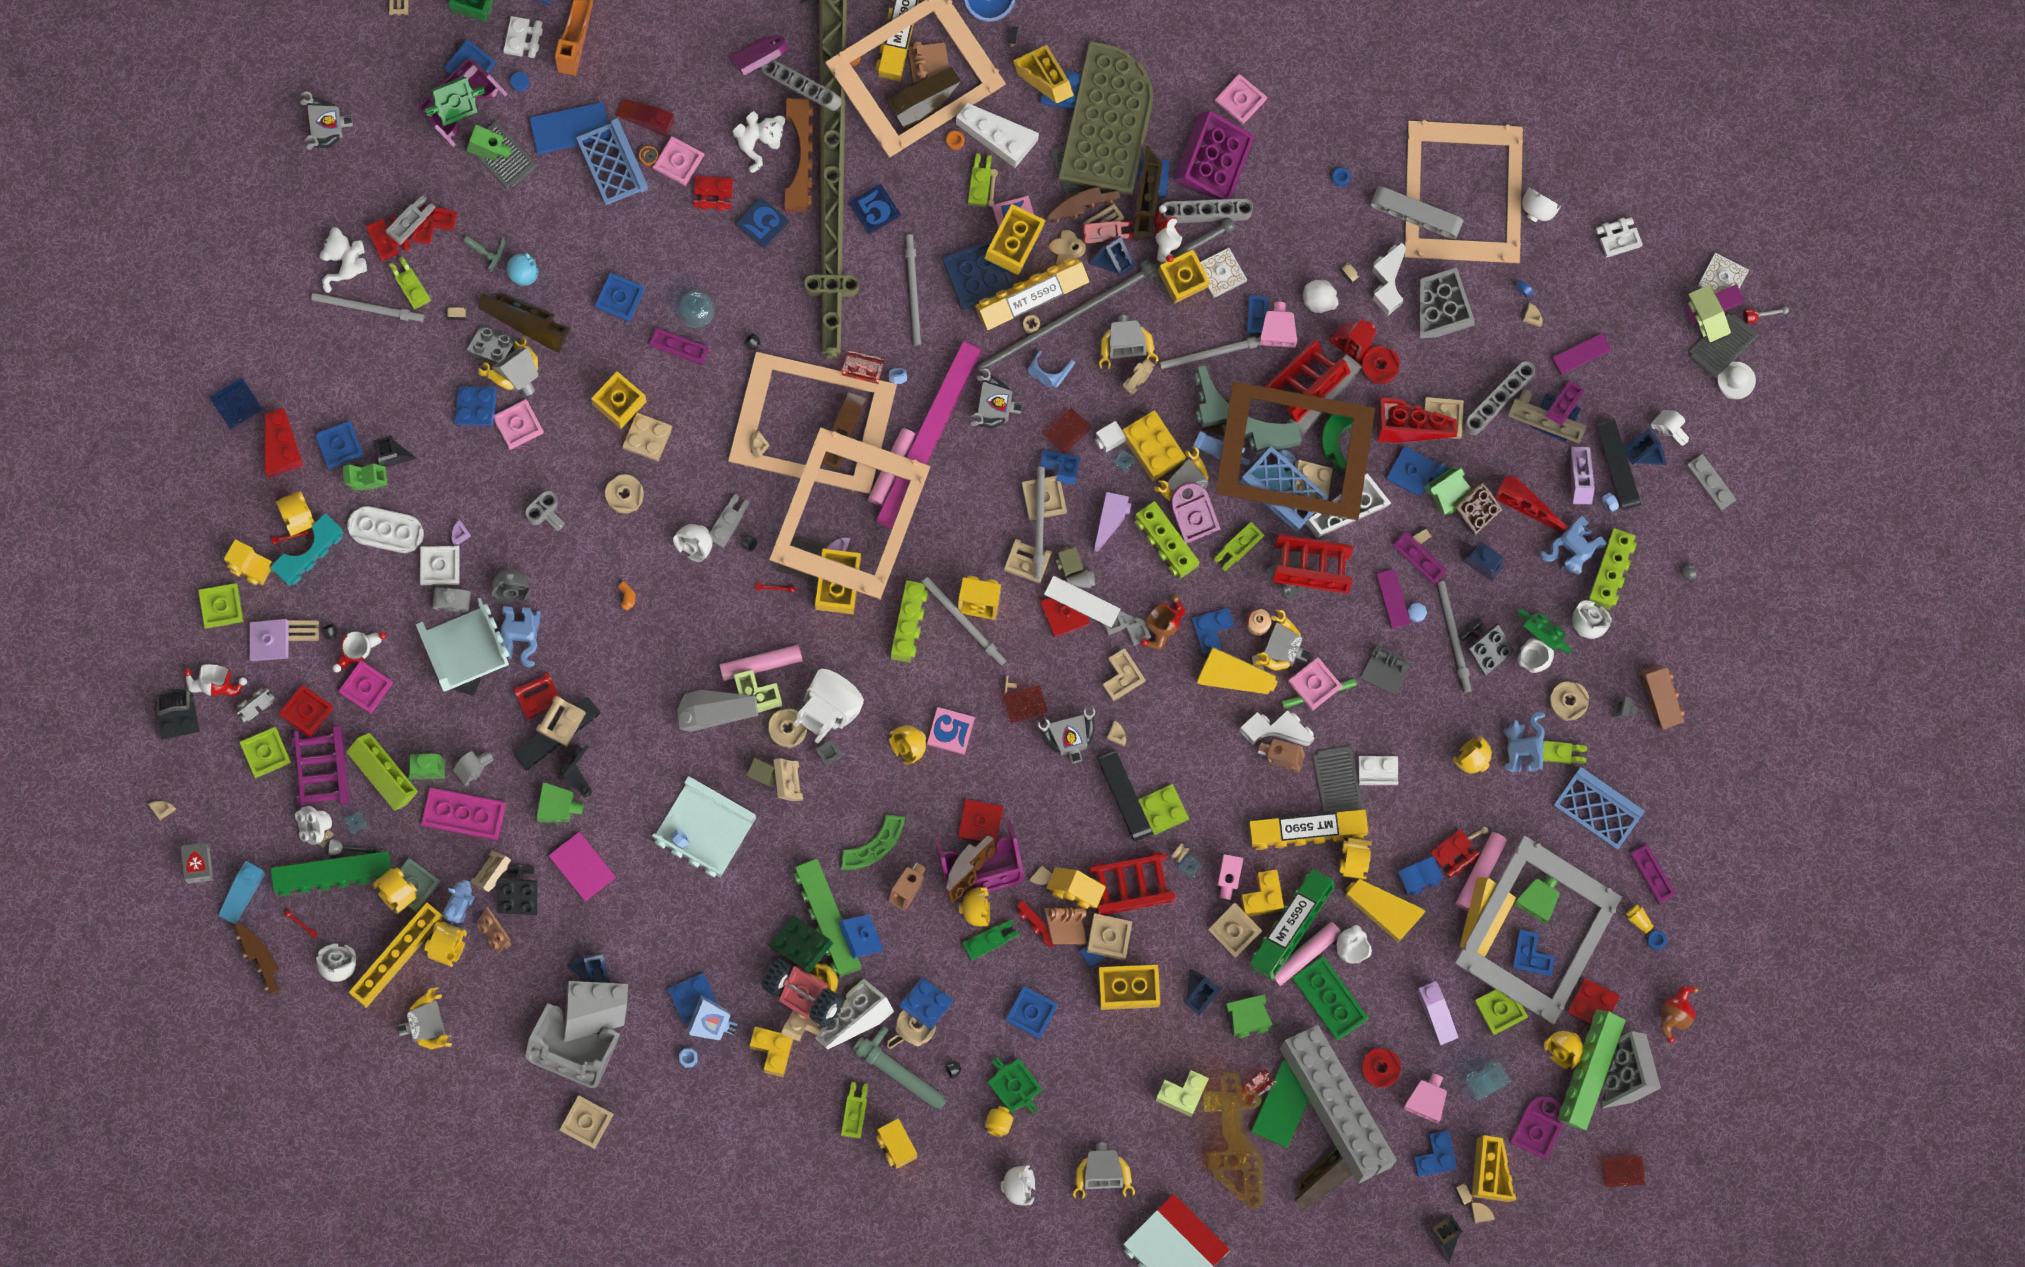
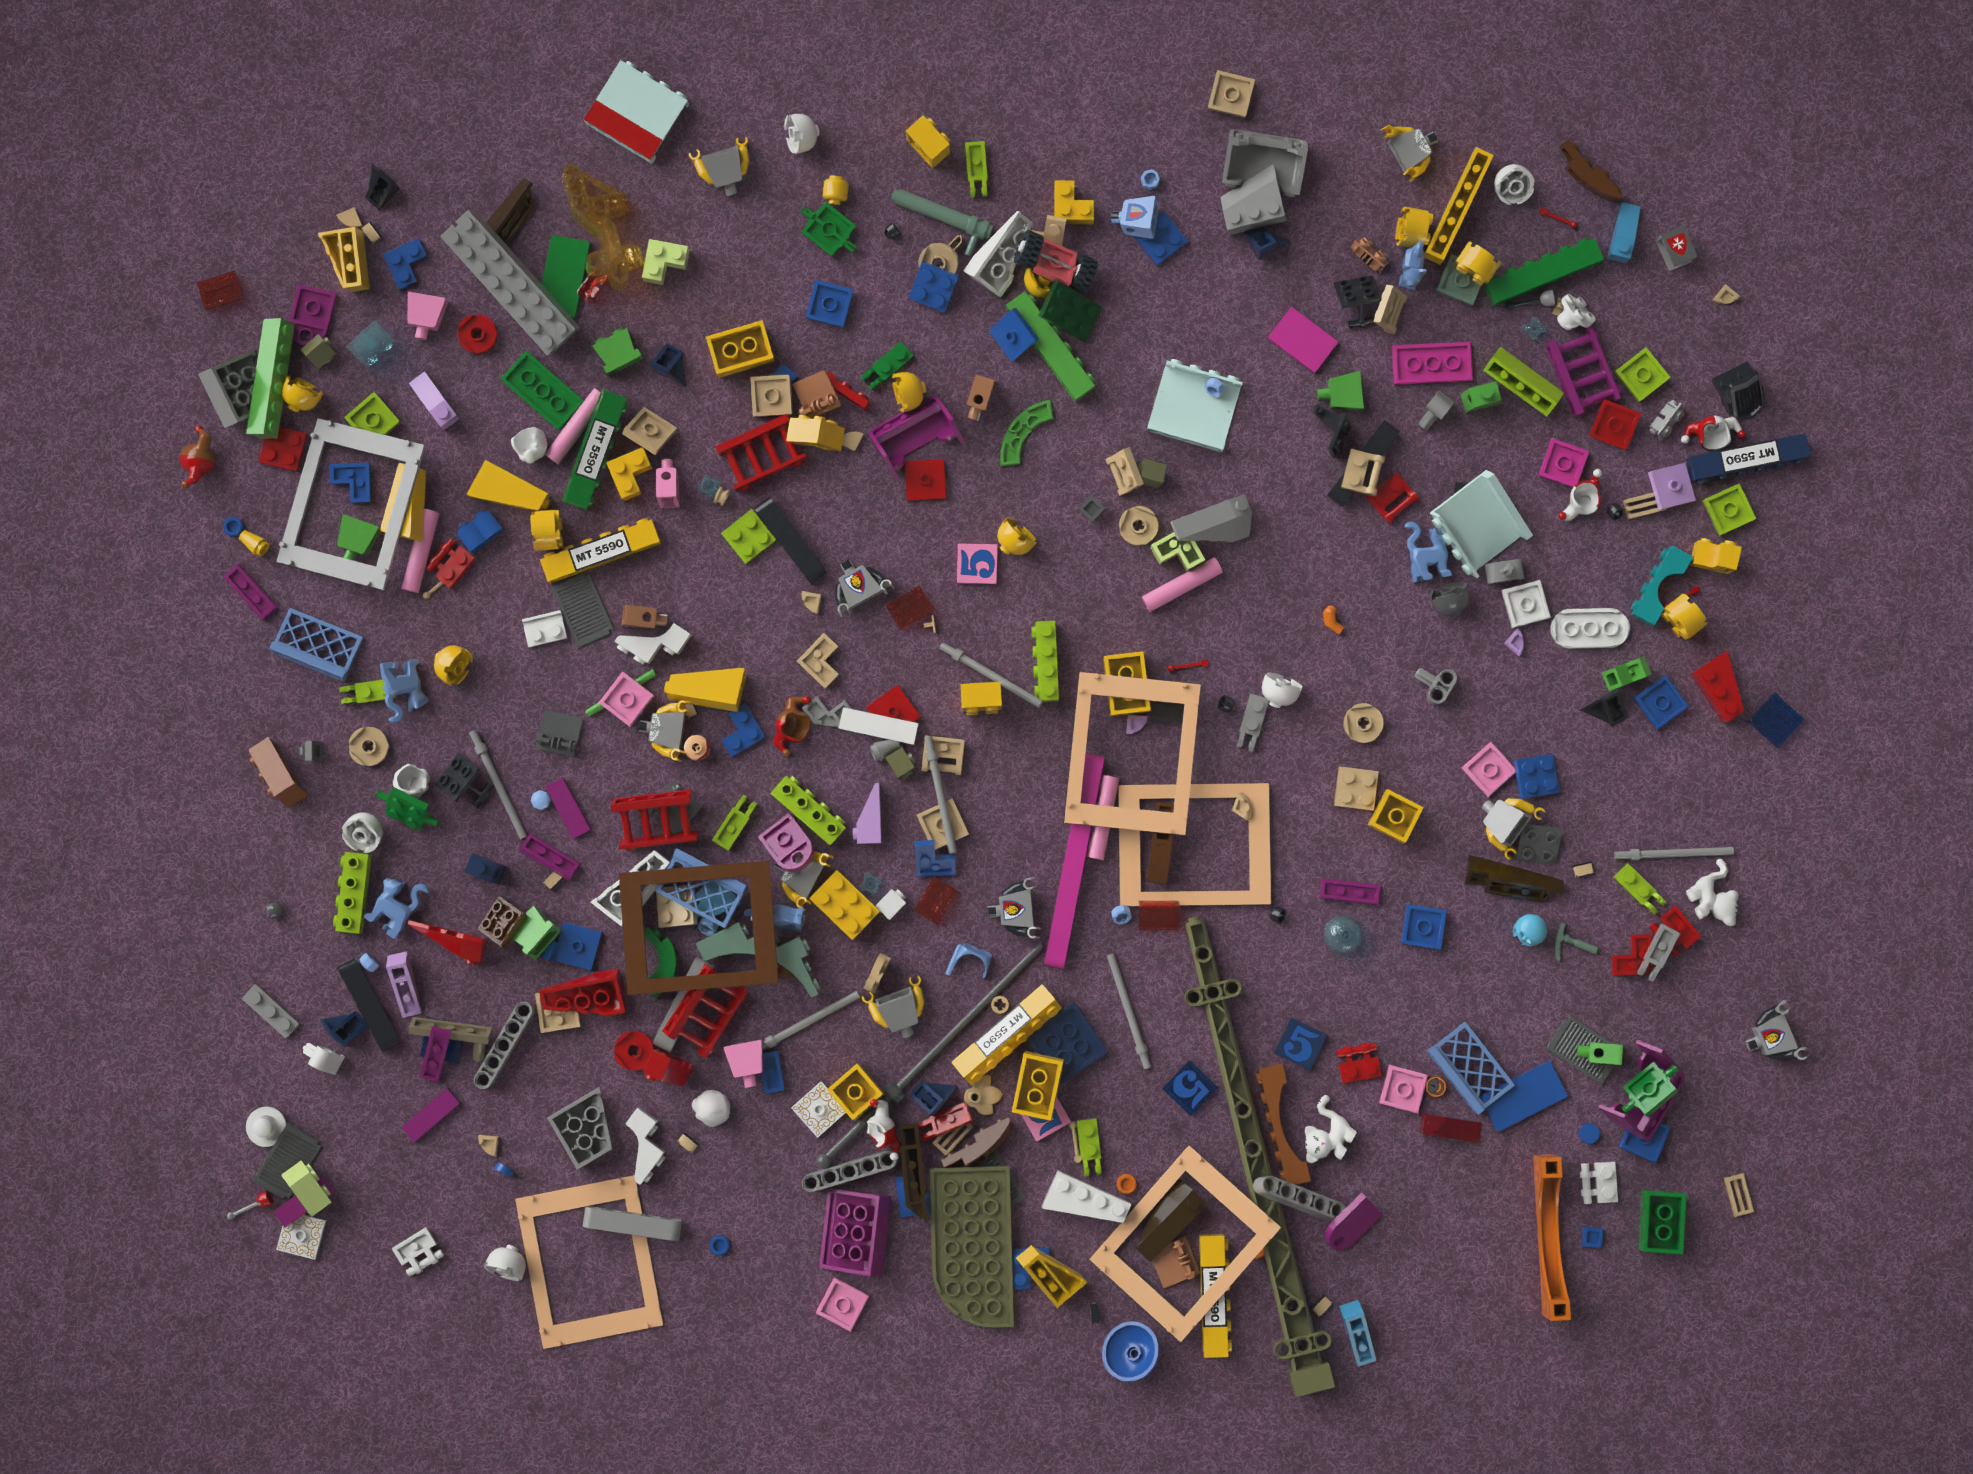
camera: 170 degrees right, 10 degrees up
(188, 648) = (1748, 457): none -> brick
(826, 700) = (1103, 557): white piece -> none
(964, 869) = (929, 419): reddish brown slope -> none
(1539, 1086) = (319, 351): none -> olive brick

